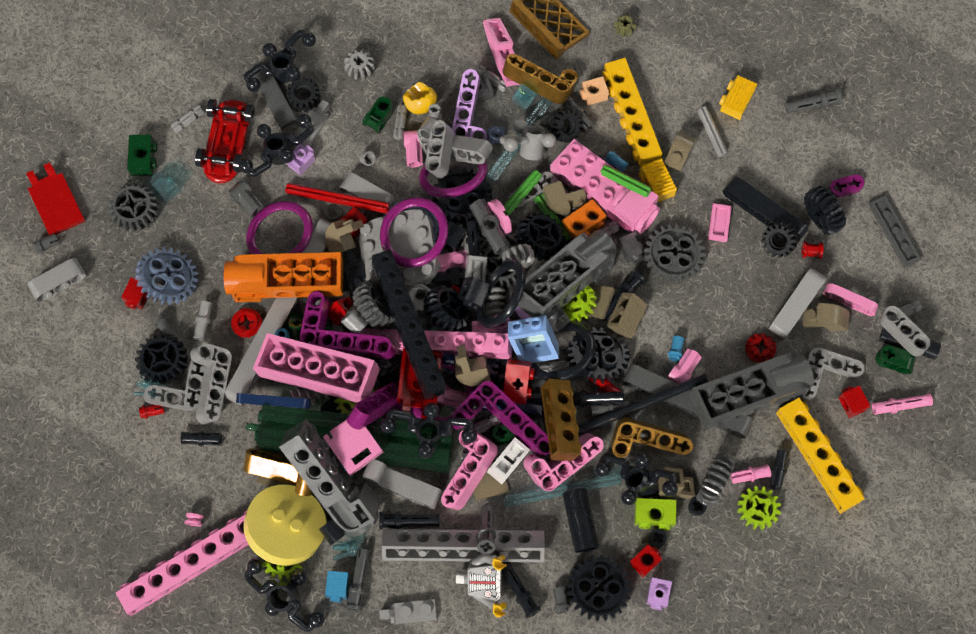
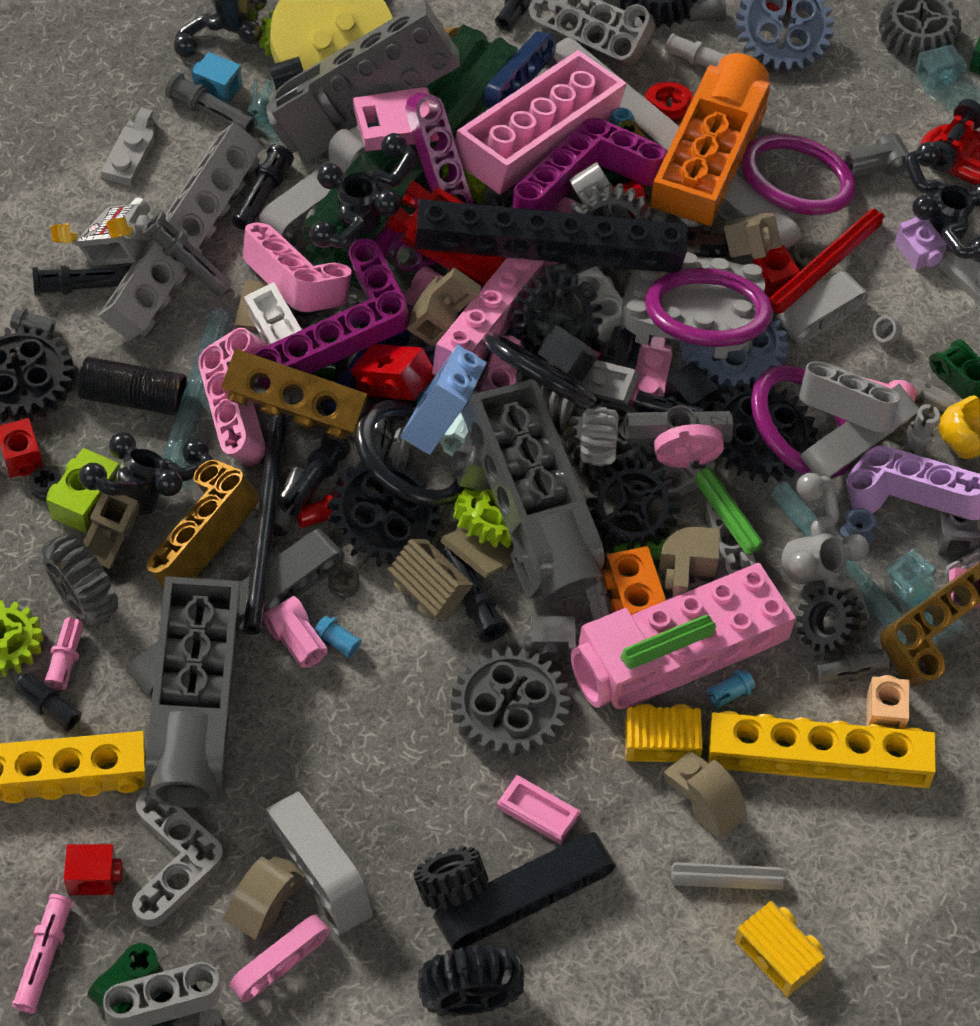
camera: 110 degrees right, 15 degrees down
(754, 353) = (274, 784): red gear -> none
(812, 250) = (408, 937): red bush -> none

